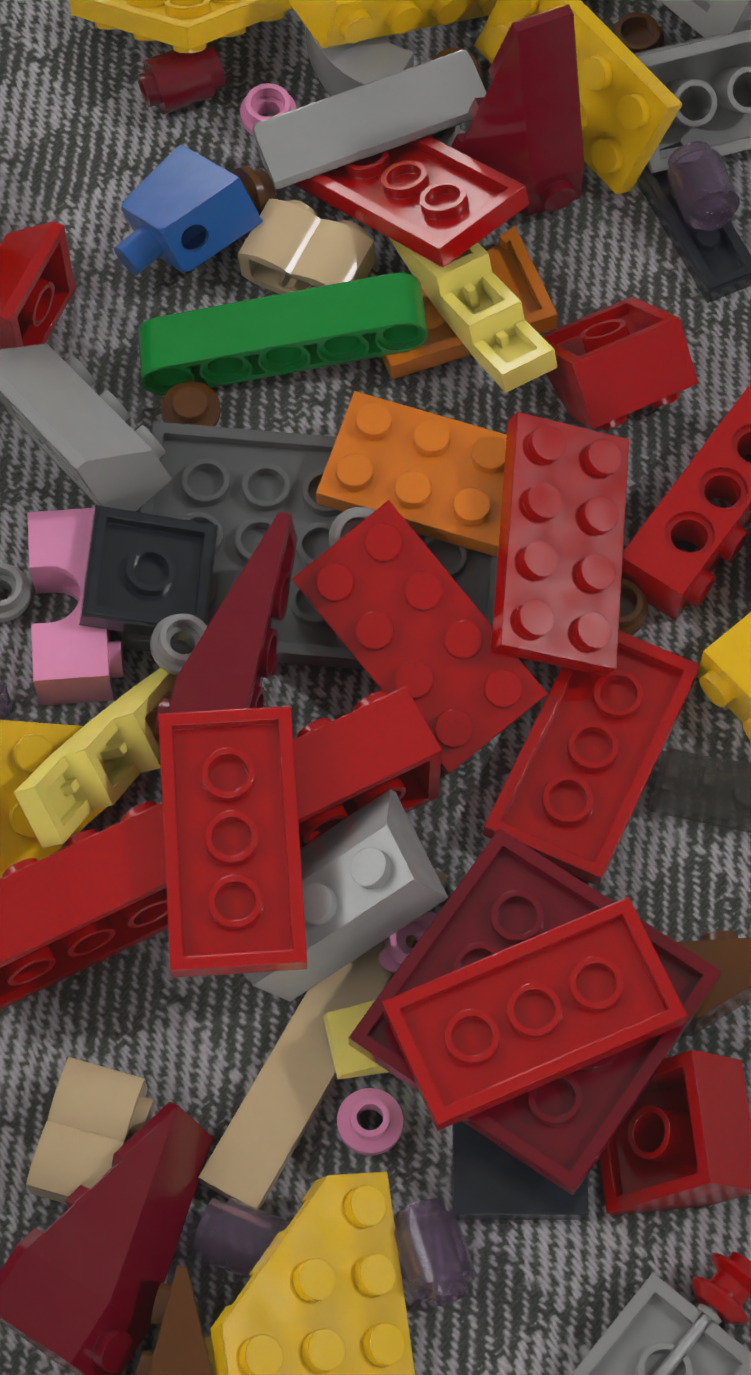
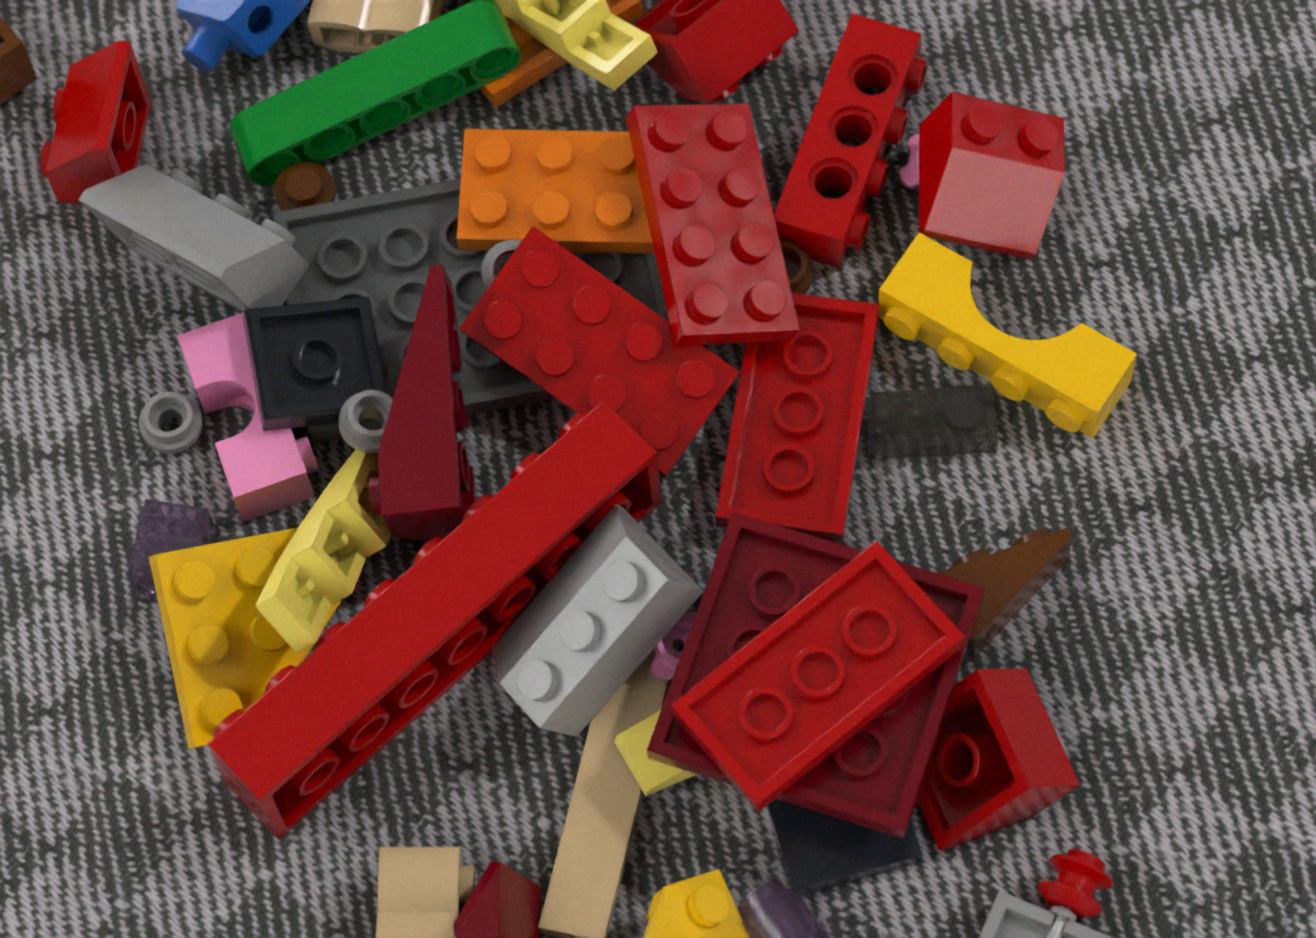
camera: 10 degrees left, 0 degrees up
(231, 842) = (481, 593): red plate -> none
(370, 1141) = (692, 846): bright pink plate -> none

